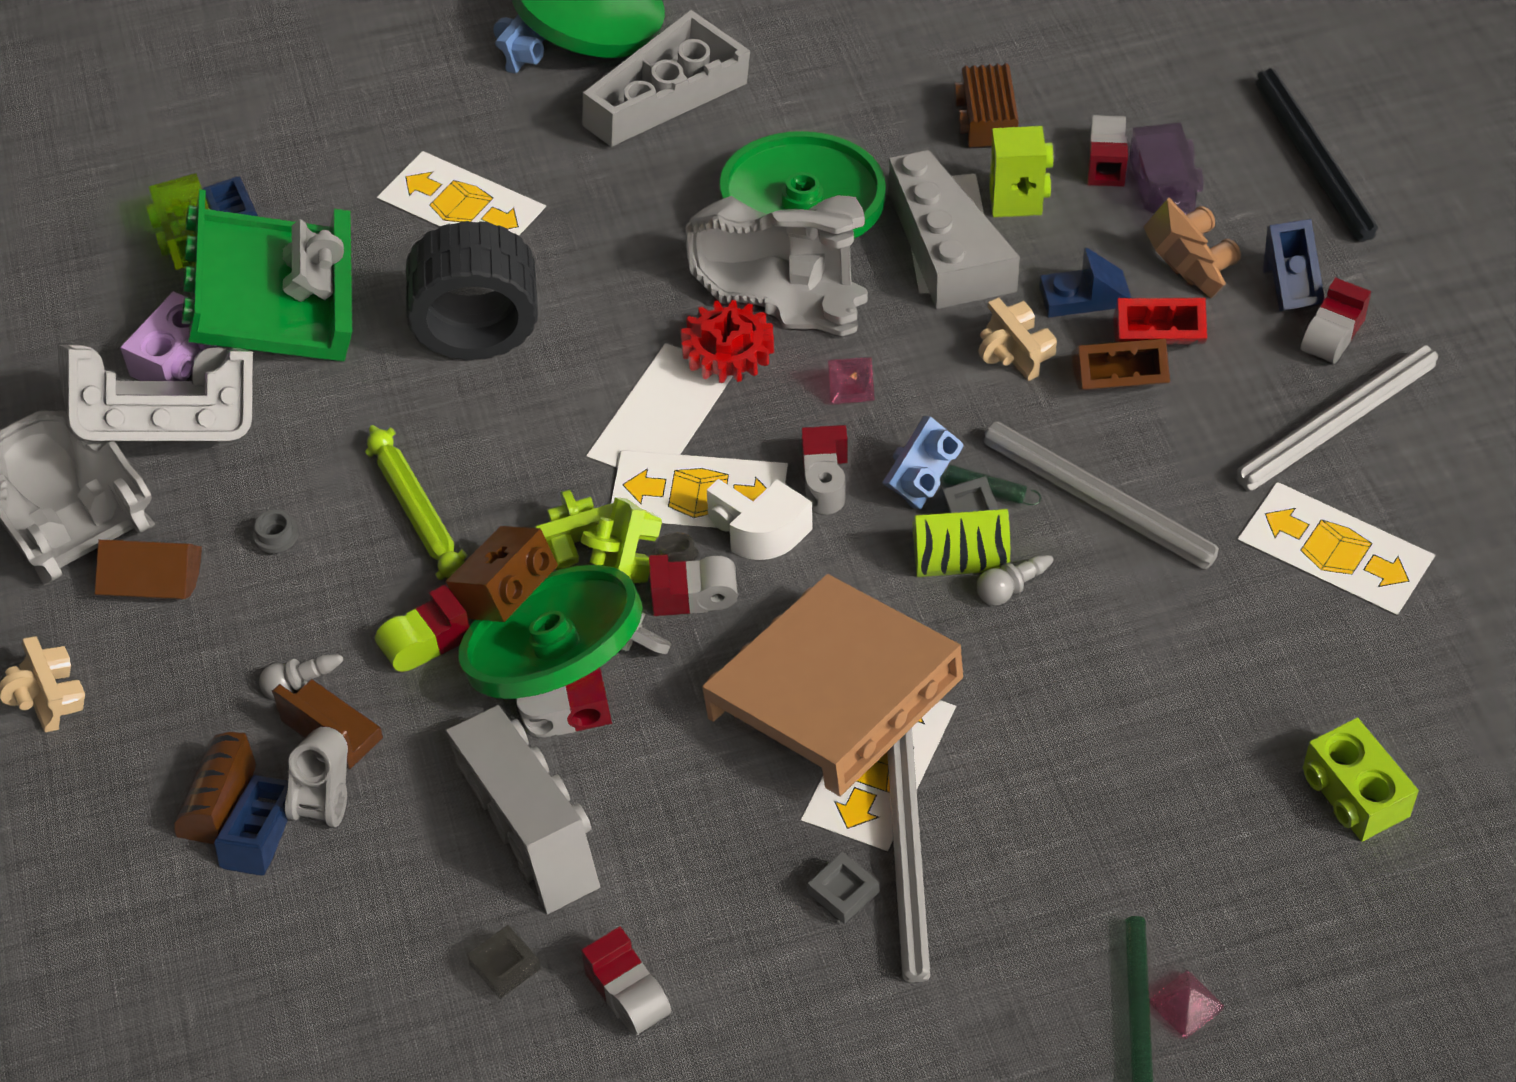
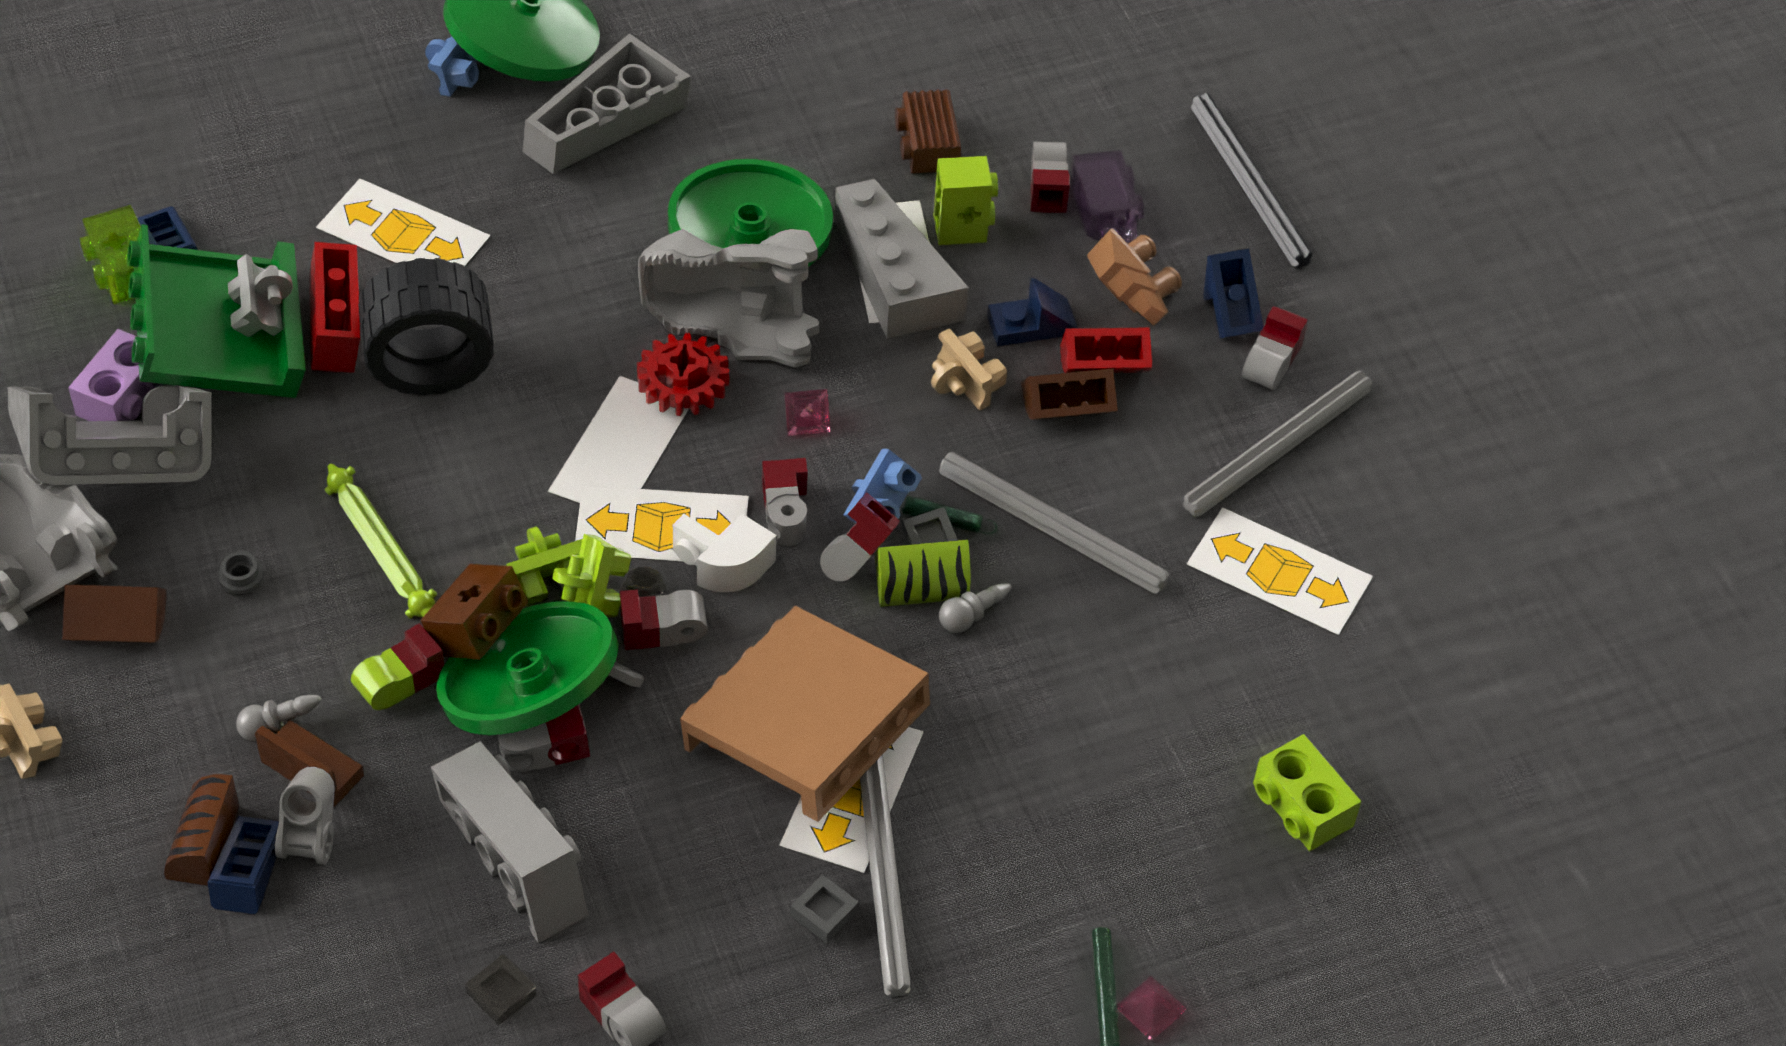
camera: 10 degrees left, 0 degrees up
(385, 273) = (334, 307): none -> red brick
(890, 518) = (850, 551): none -> leg

